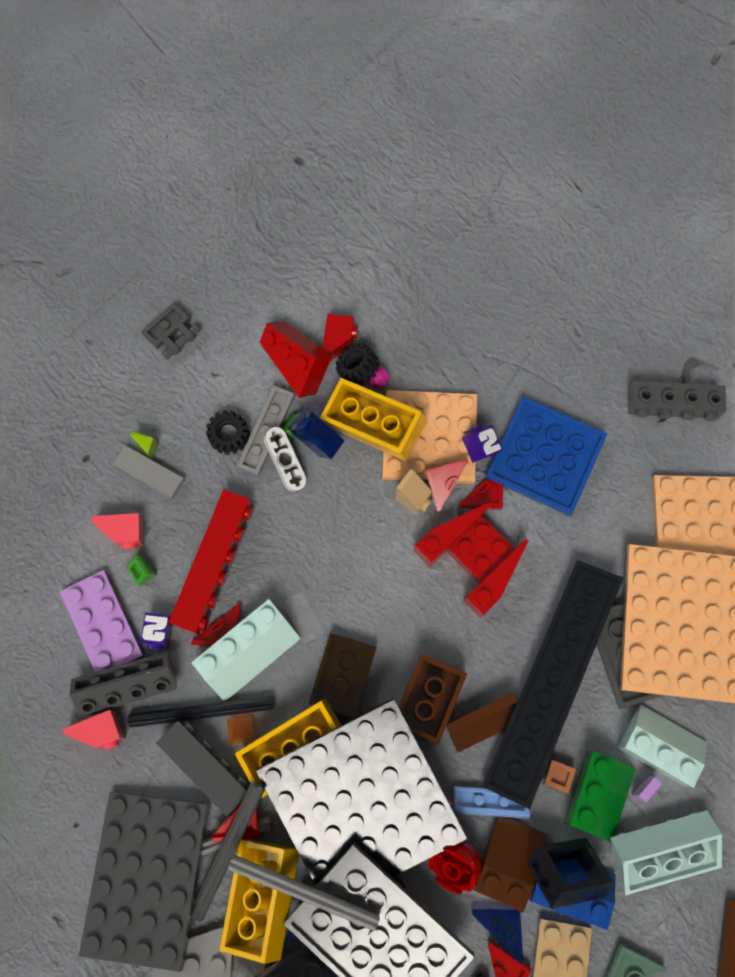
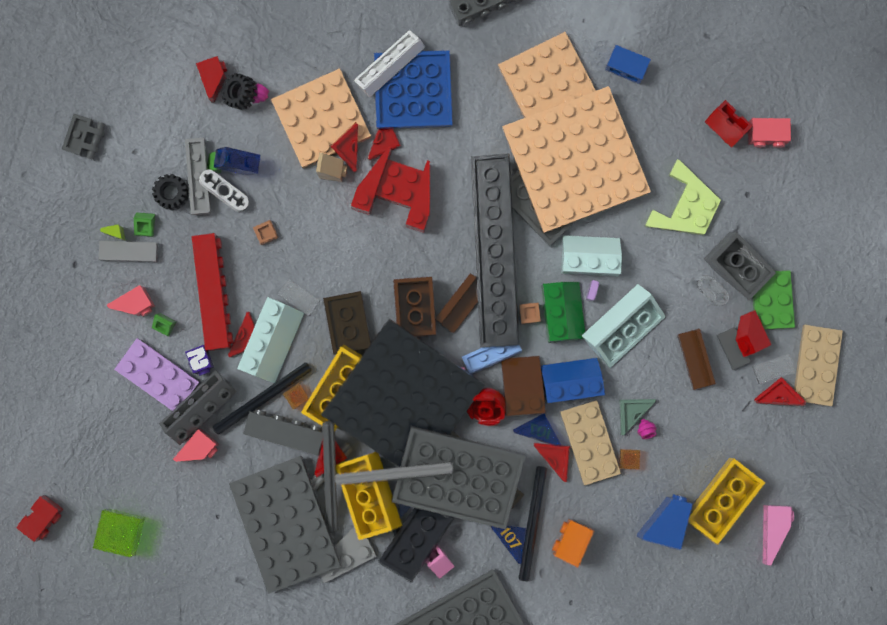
camera: 30 degrees left, 10 degrees up
(181, 452) = (144, 224): none -> bright green slope
(296, 357) = (190, 109): red wedge -> none
(305, 527) = (265, 232): none -> nougat tile
(374, 419) = (273, 128): yellow brick -> none
(481, 443) = (361, 105): dark purple brick -> none
(535, 414) = (389, 63): none -> white slope
(551, 882) = (561, 387): black window -> none

